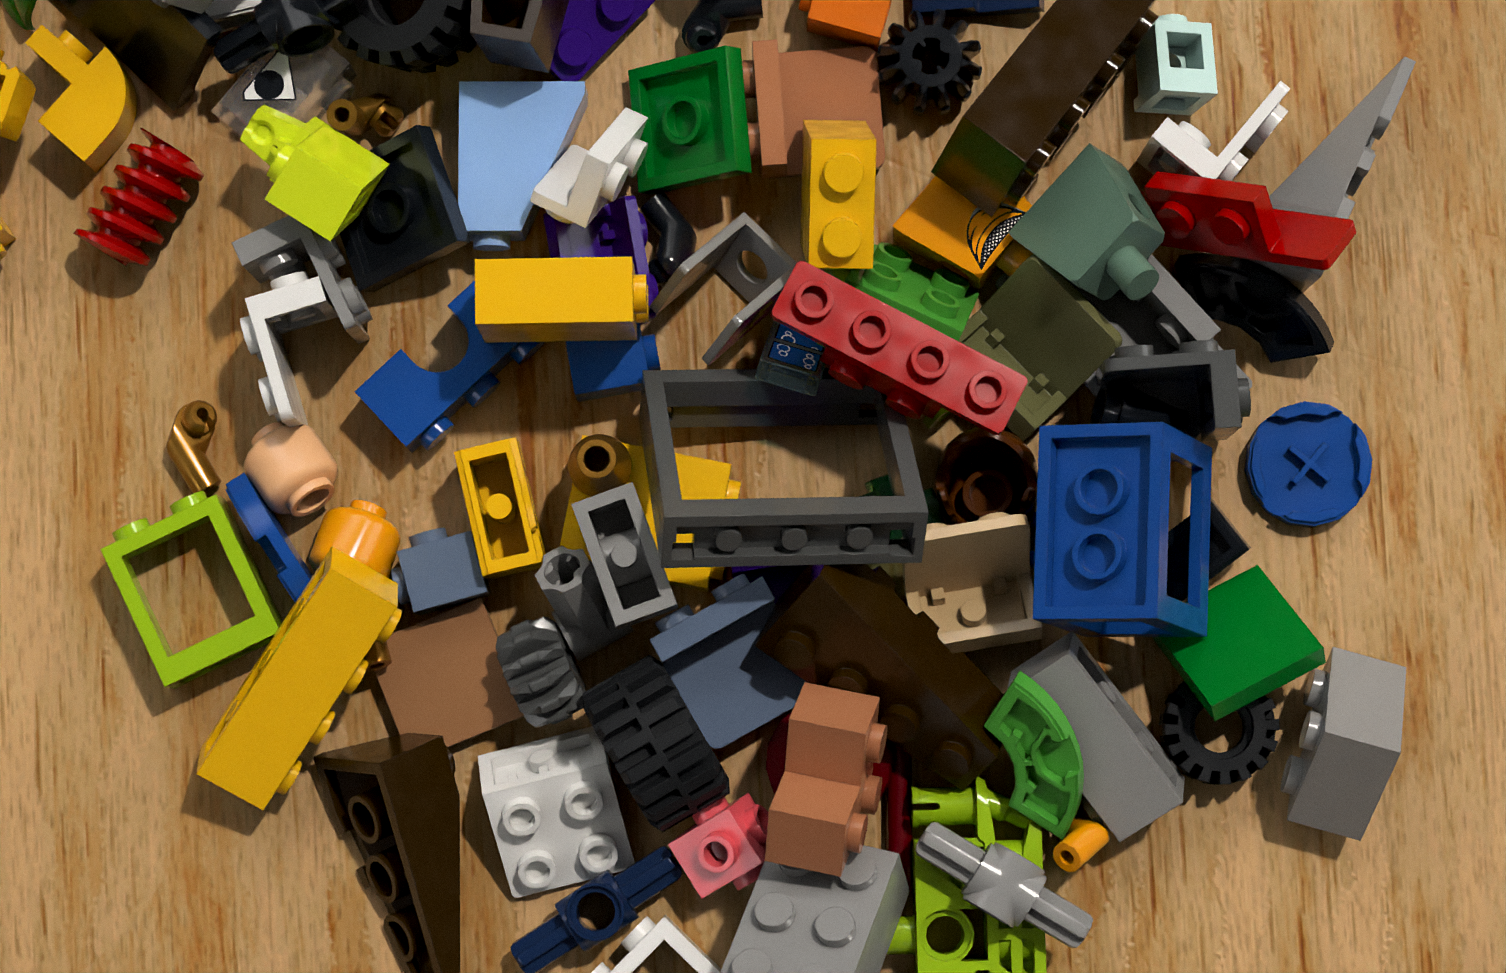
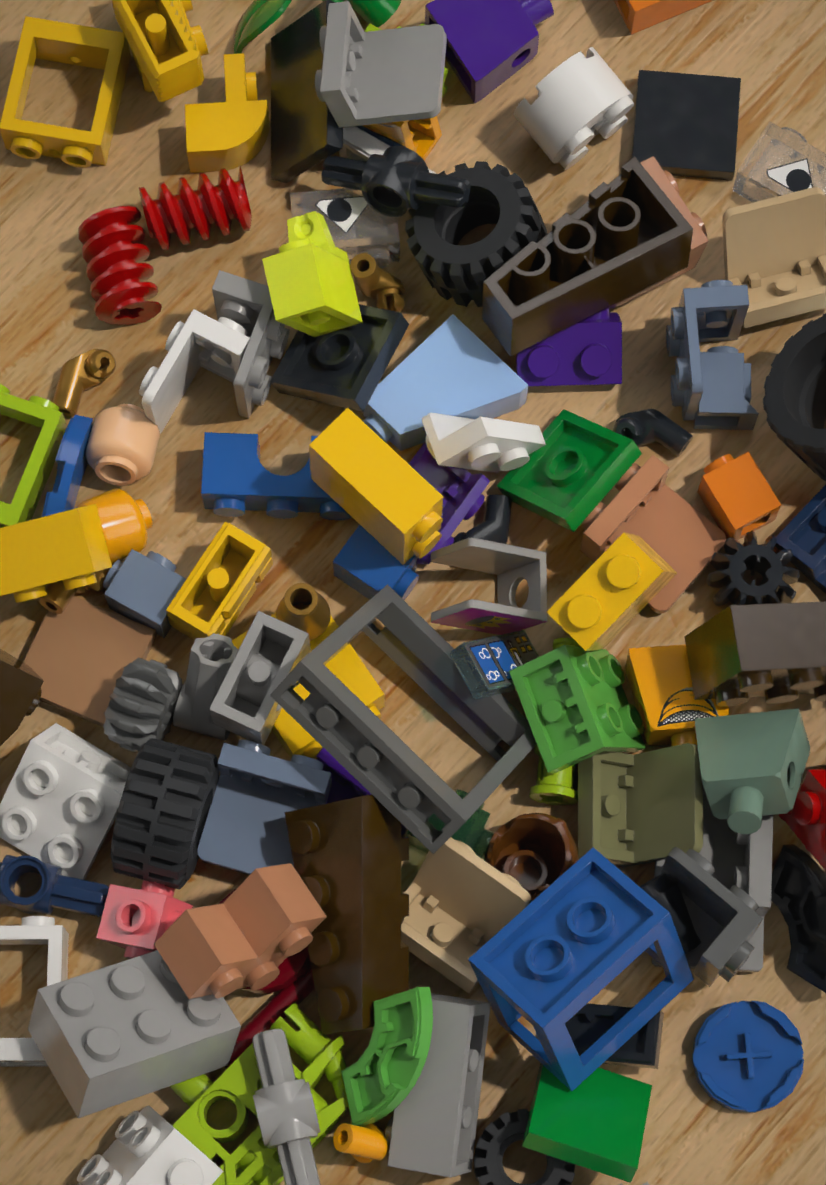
camera: 45 degrees right, 10 degrees down
(124, 321) = (117, 266): none -> red piece
(896, 352) = (548, 715): red bracket -> none

